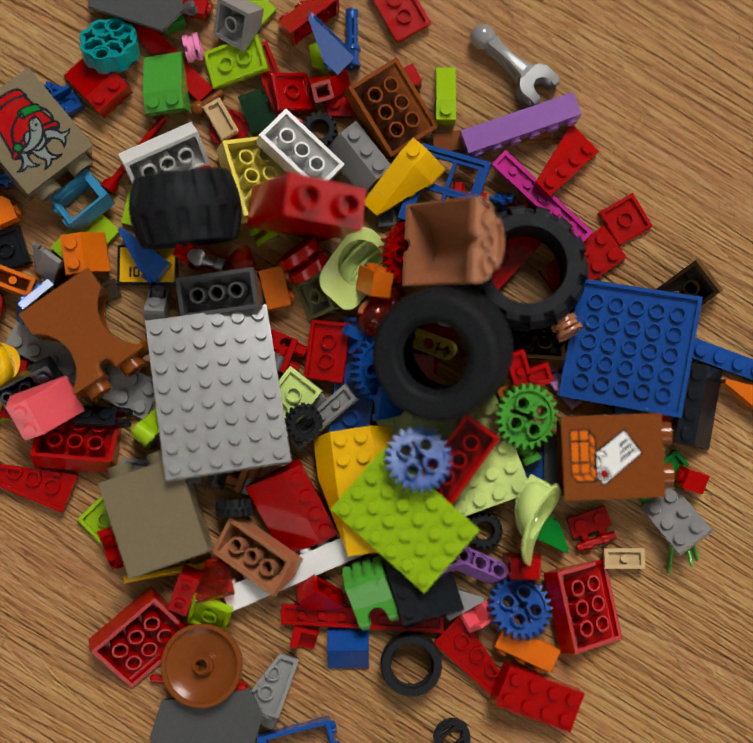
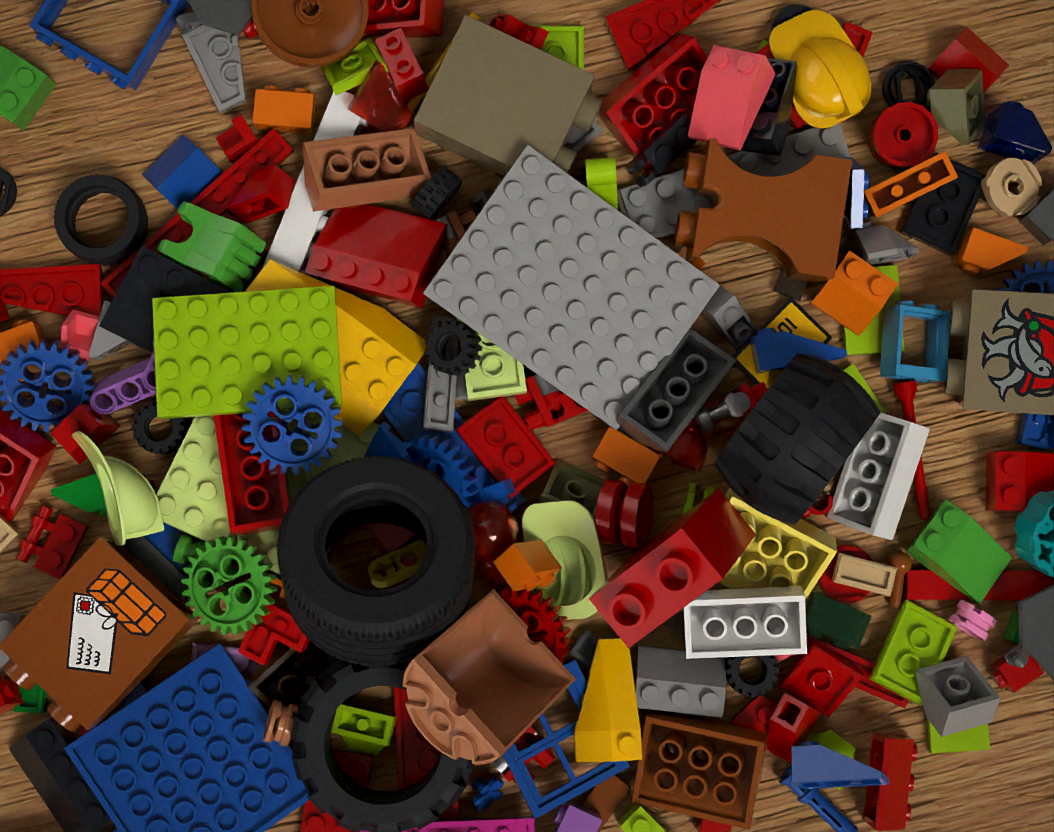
camera: 130 degrees right, 0 degrees up
(266, 627) = (284, 110): none -> orange brick
(528, 285) = (363, 728): none -> lime slope

